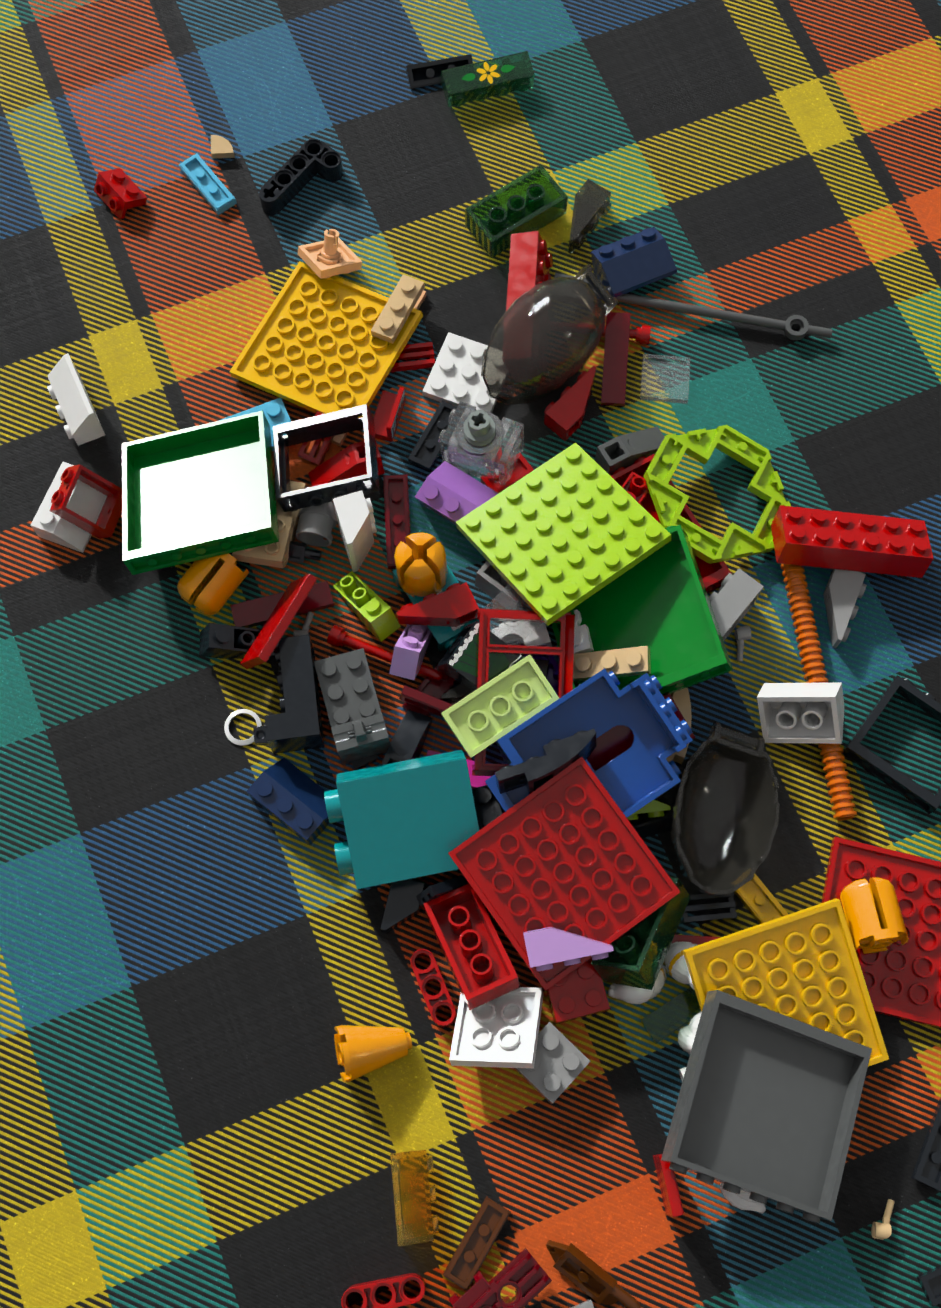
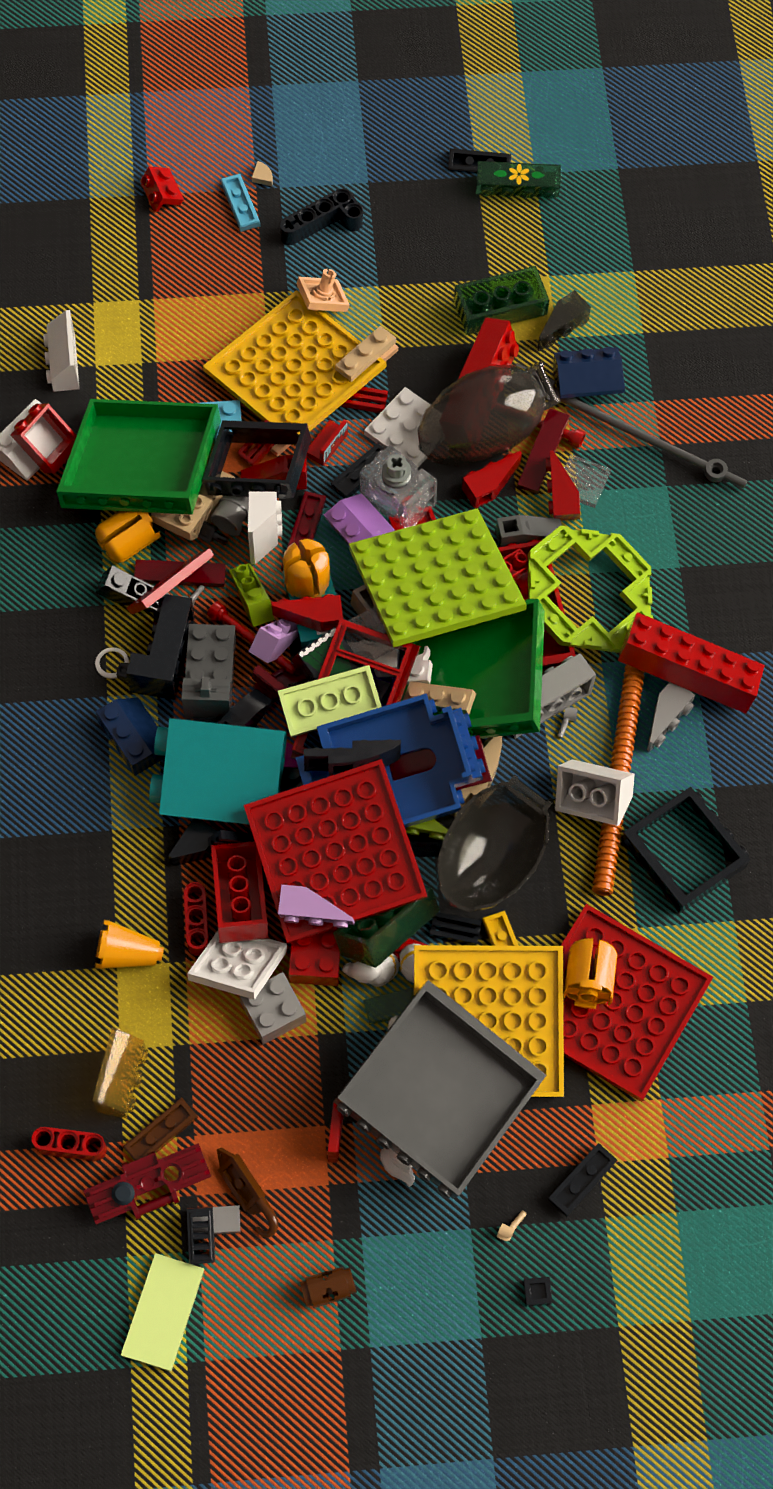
camera: 15 degrees right, 5 degrees down
(654, 398) = (564, 492): none -> red slope

